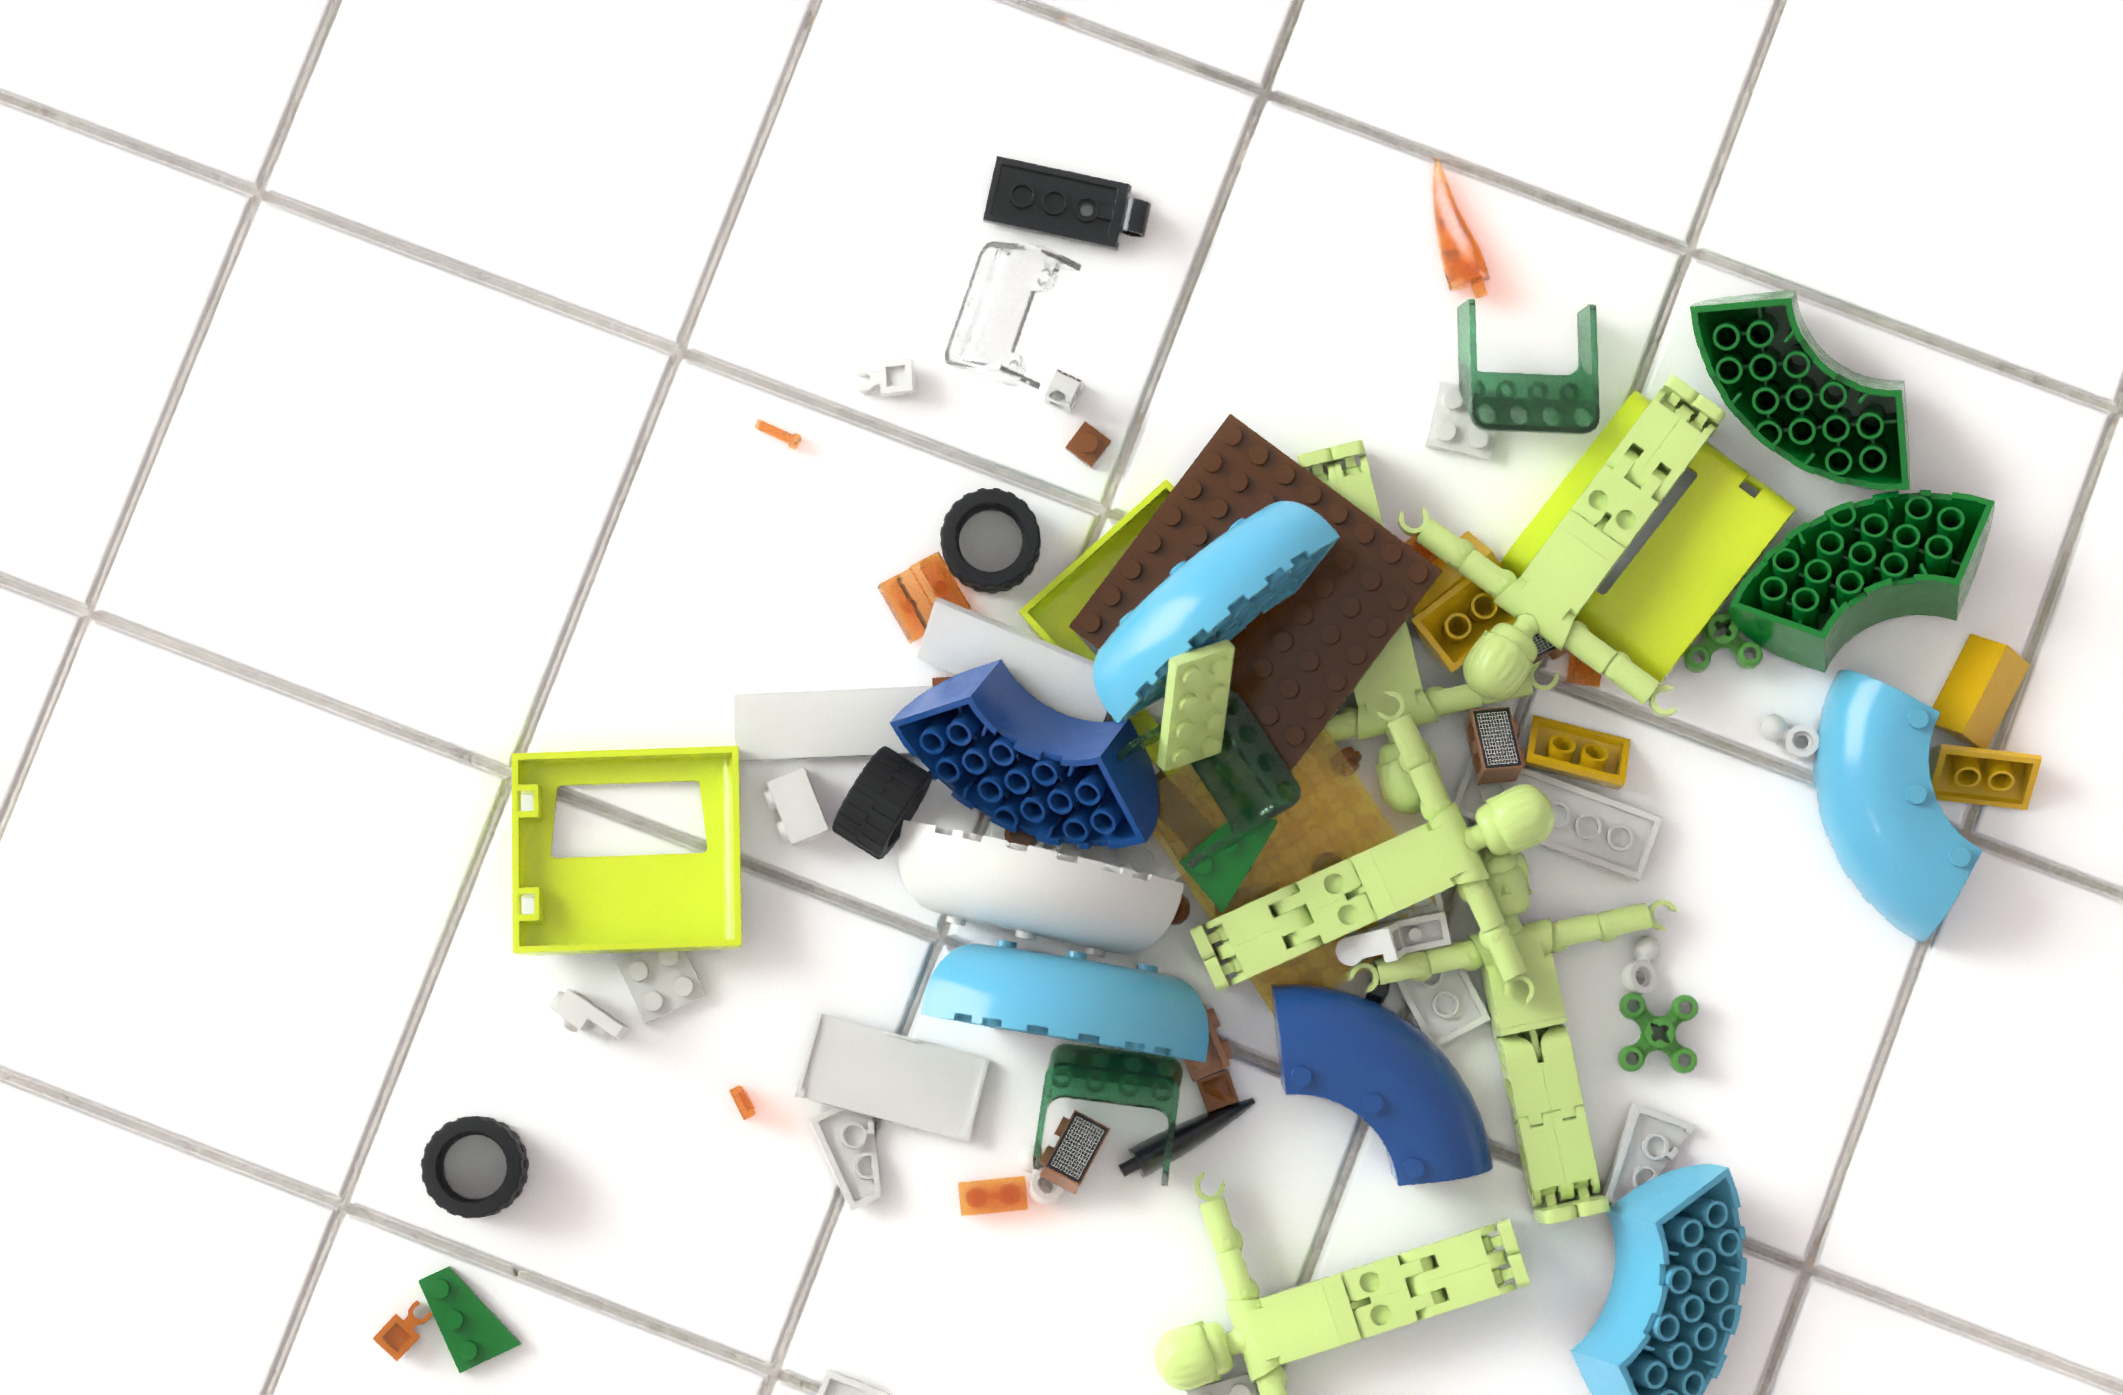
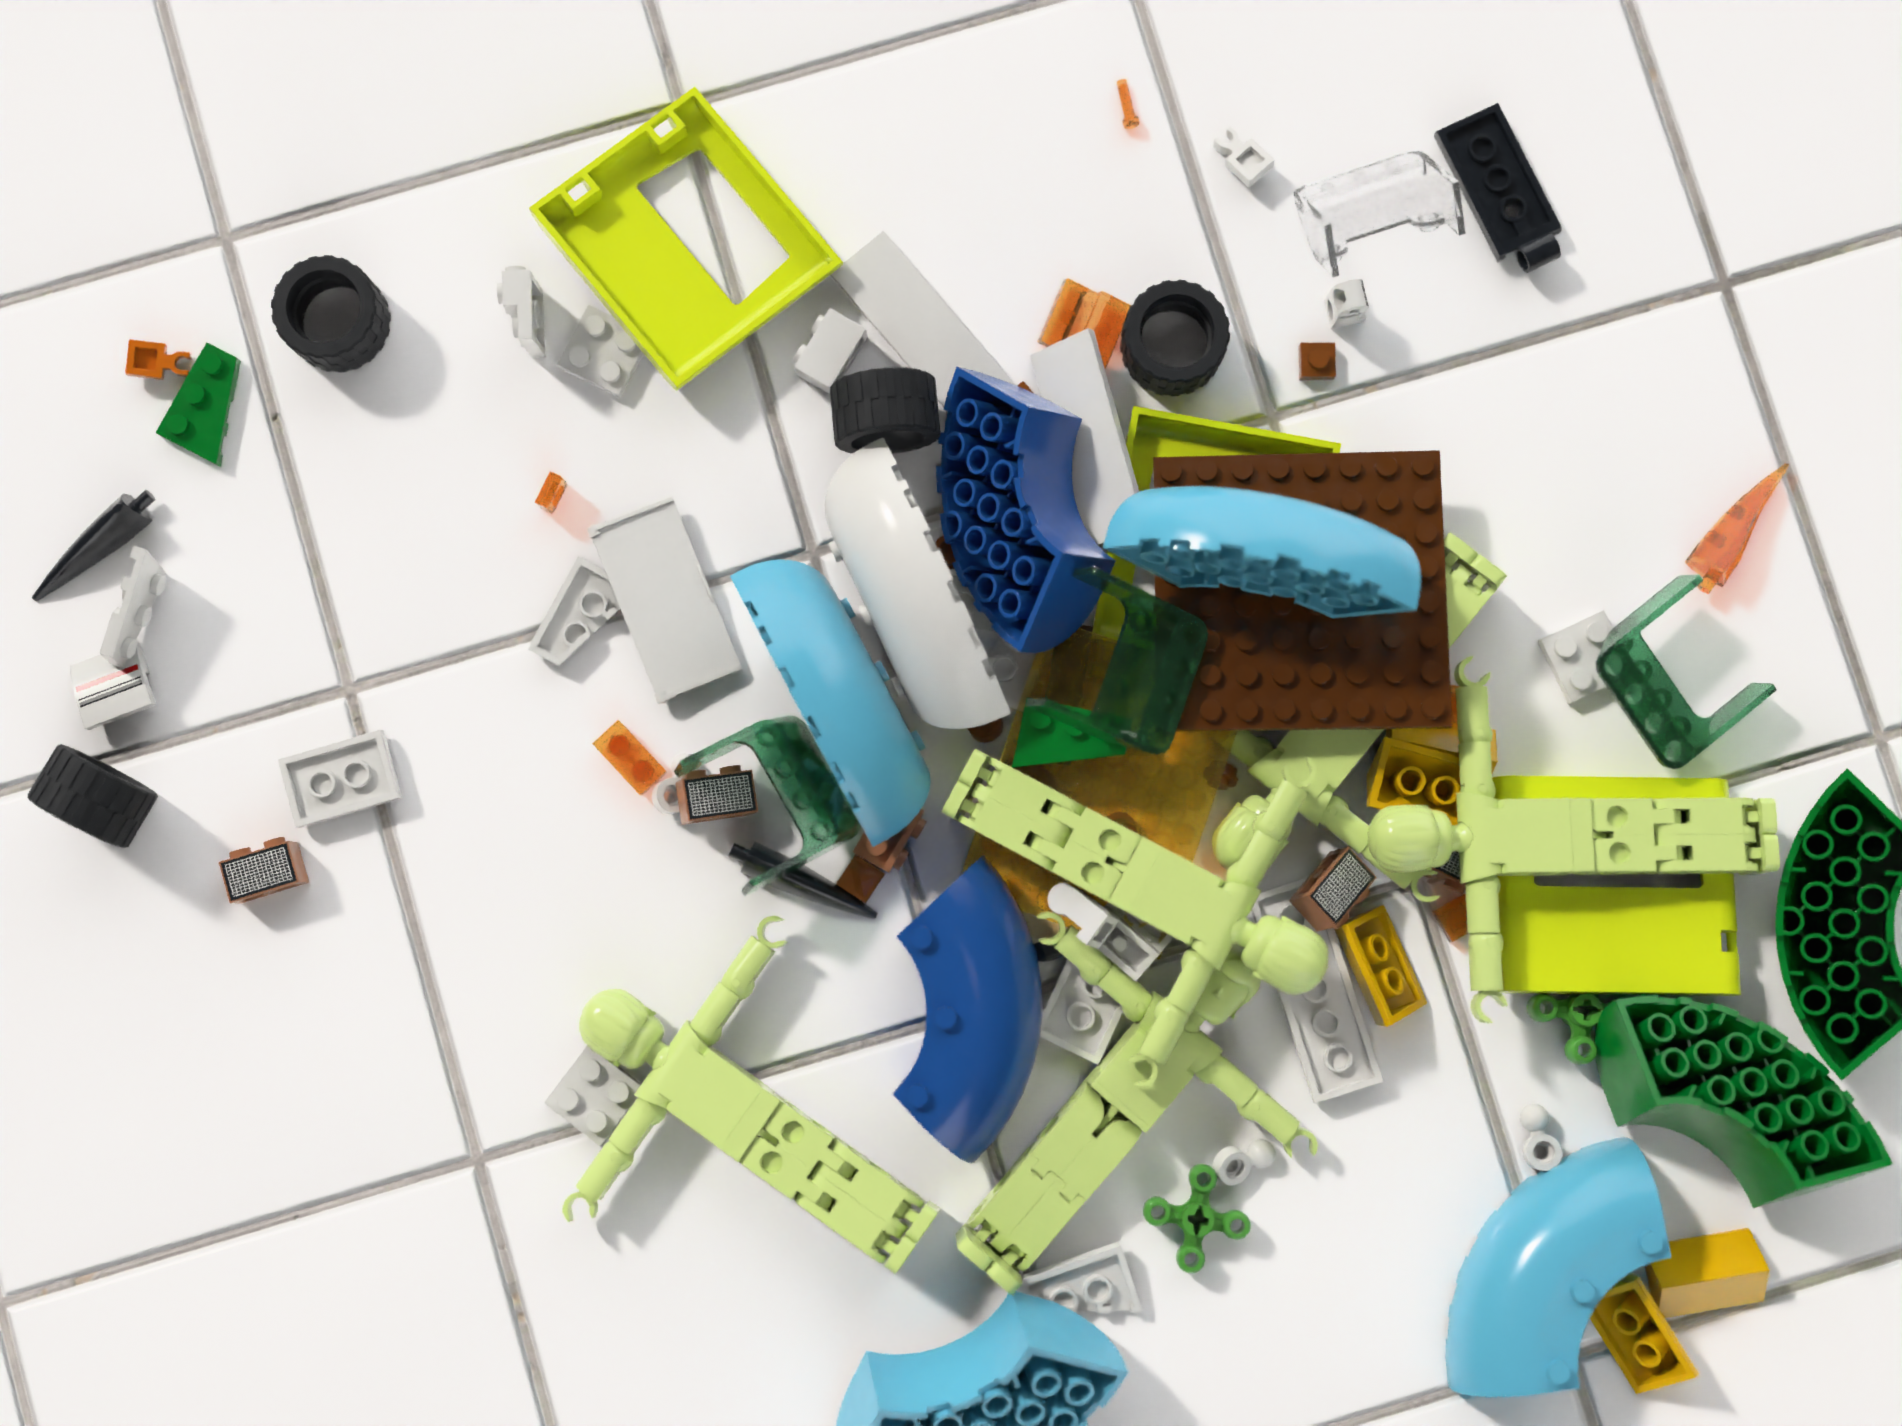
camera: 50 degrees right, 0 degrees up
(1195, 705) = (1171, 599): yellowish green plate -> none

